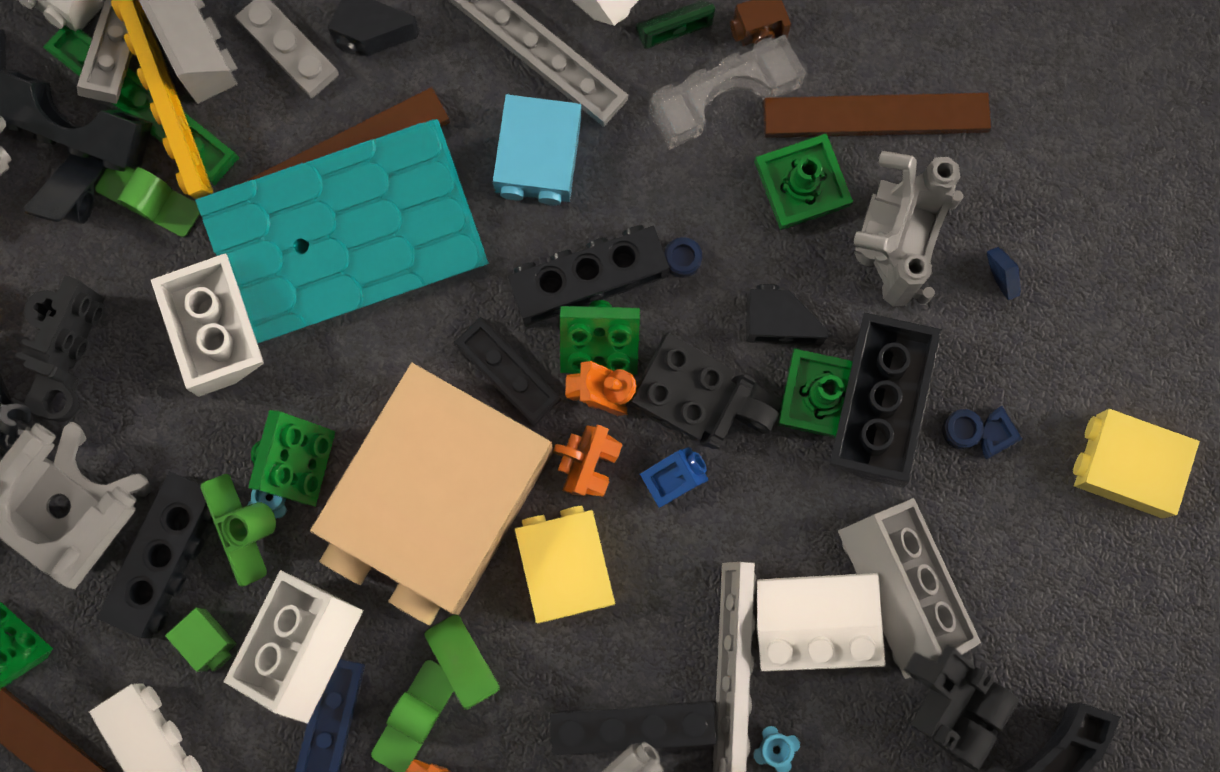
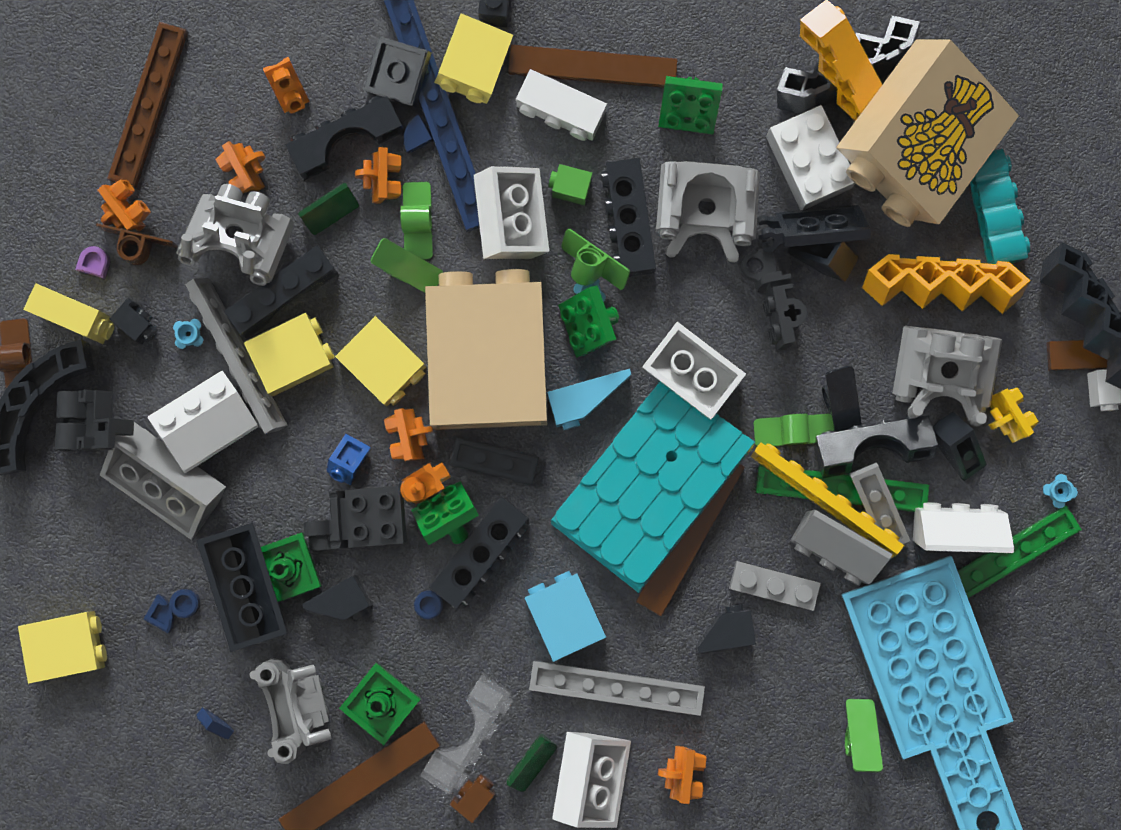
camera: 150 degrees right, 5 degrees up
(357, 375) = (579, 400): none -> medium azure slope
(667, 644) = (290, 354): none -> light yellow brick

